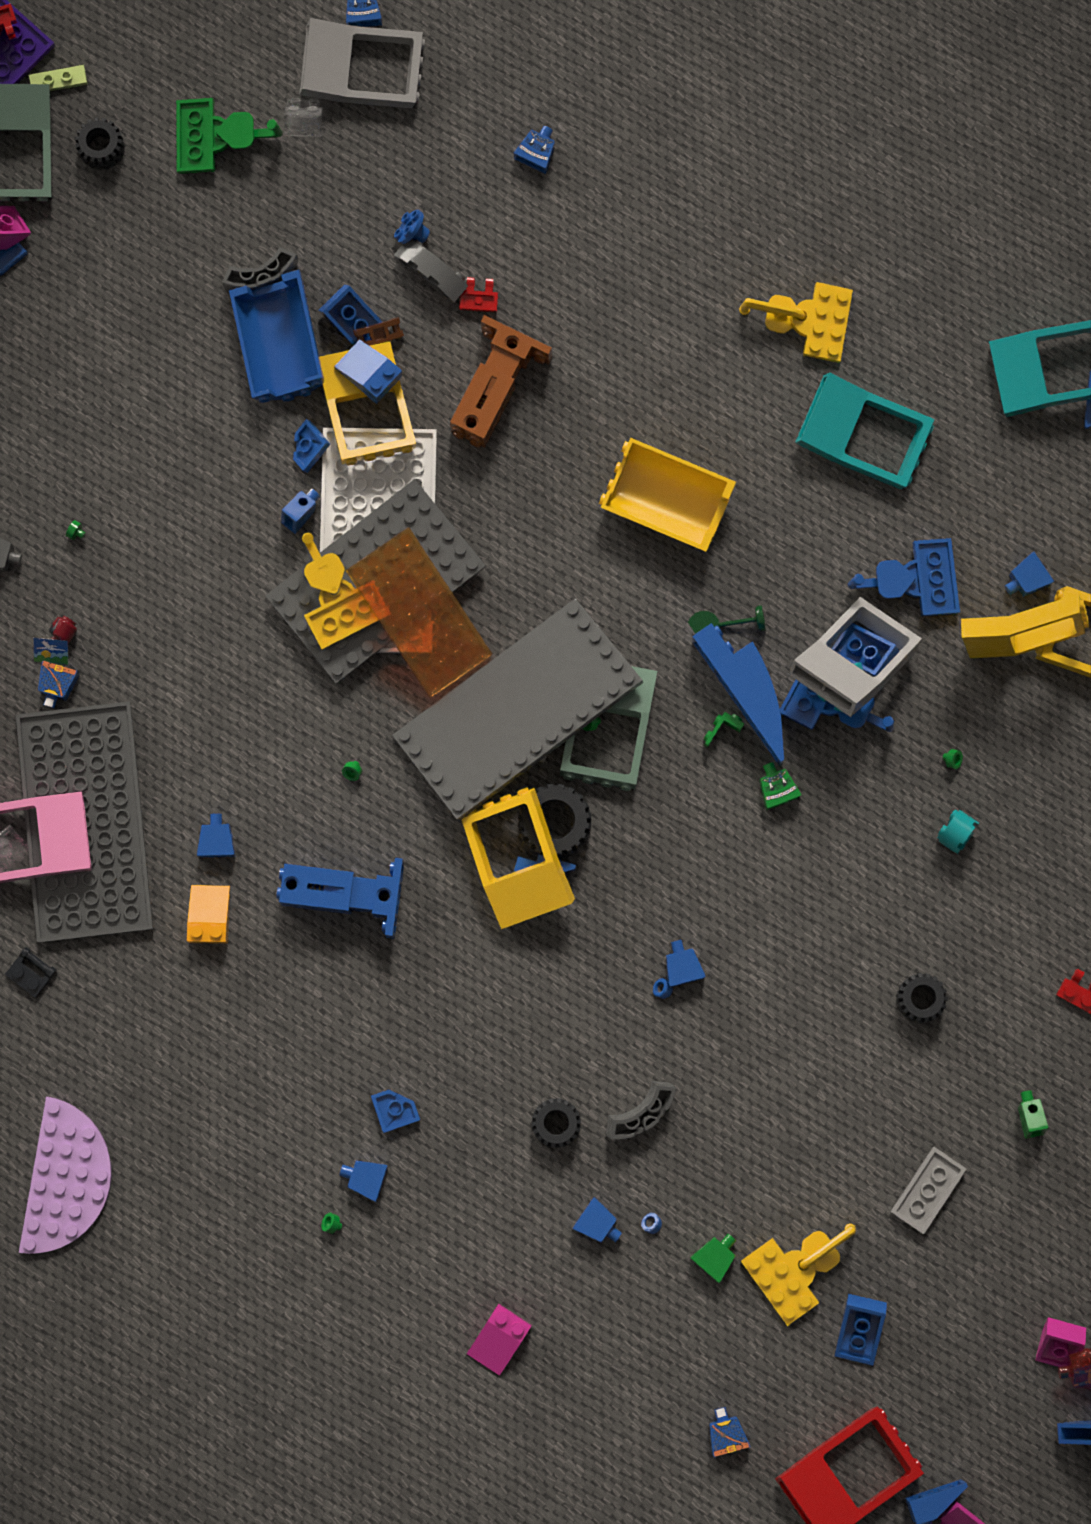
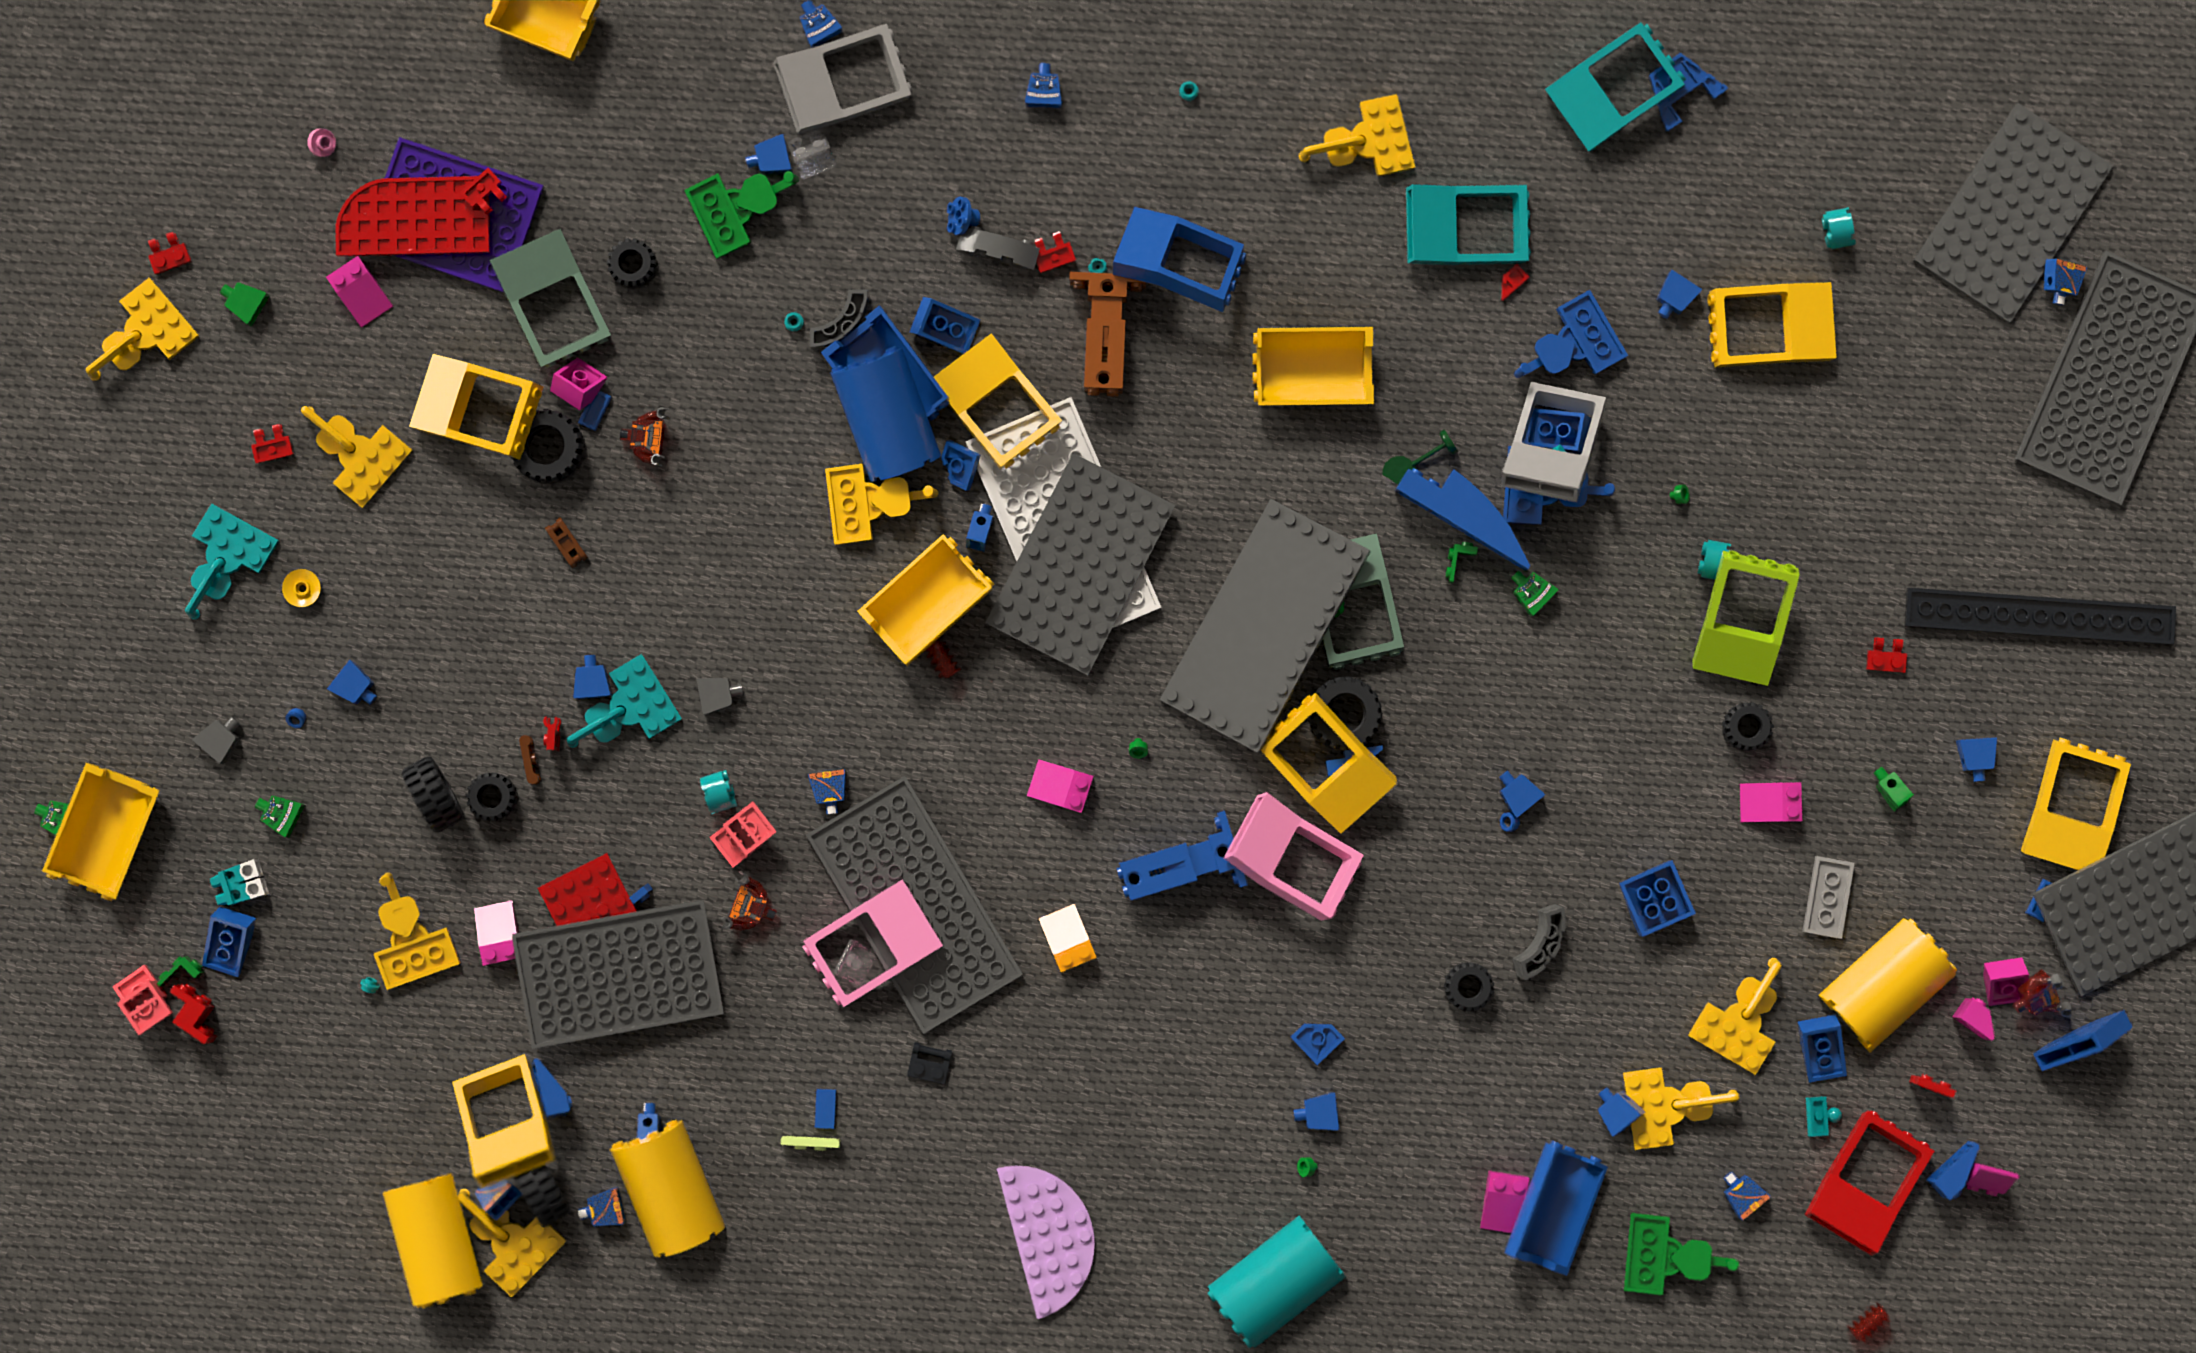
camera: 25 degrees left, 5 degrees up
(42, 299) = (647, 436): none -> torso
(51, 650) = (810, 761): sticker -> none
(61, 78) = (563, 216): yellowish green plate -> none
(63, 629) = (812, 737): dark red head -> none
(74, 530) = (780, 639): green tile -> none
(201, 440) = (858, 503): none -> yellow plate
(210, 610) = (941, 659): none -> clear red piece
(216, 839) = (1042, 866): blue torso -> none
(219, 251) = (789, 317): none -> teal plate
(220, 550) = (926, 599): none -> yellow cylinder
(252, 1319) = (1275, 1282): none -> teal cylinder
(261, 369) = (885, 414): none -> blue cylinder
(266, 773) = (1060, 786): none -> dark pink slope
(267, 103) = (771, 156): none -> blue torso
(339, 613) = (1069, 601): yellow plate -> none
(369, 371) = (985, 370): slope -> none
(379, 332) = (976, 329): reddish brown plate -> none
(419, 612) = (1135, 576): clear orange plate -> none
(428, 901) = (1265, 838): none -> bright pink window
(514, 321) = (1097, 262): none -> teal plate
(543, 1365) = (1556, 1208): none -> blue cylinder
(567, 322) = (1148, 244): none -> blue window
(597, 1222) = (1545, 1059): blue torso -> none
(613, 1453) = (1650, 1255): none -> green plate
(643, 1301) = (1618, 1111): none -> blue torso
(655, 1227) = (1599, 1038): piece -> none
(666, 201) = (1191, 85): none -> teal plate
(676, 1315) = (1648, 1091): none -> yellow plate
(715, 1257) = (1664, 1042): green torso -> none
(766, 1118) = (1656, 898): none -> blue slope
(829, 1391) = (1818, 1116): none -> teal plate
(884, 500) = (1512, 281): none -> red tile
(913, 1077) = (1770, 802): none -> dark pink slope
(941, 922) = (1739, 651): none -> lime window
(943, 1404) = (1926, 1082): none -> red plate
(950, 1296) = (1889, 983): none -> yellow cylinder
(1017, 1364) = (1976, 1017): none -> dark pink slope
(1025, 630) = (1698, 350): yellow window -> none

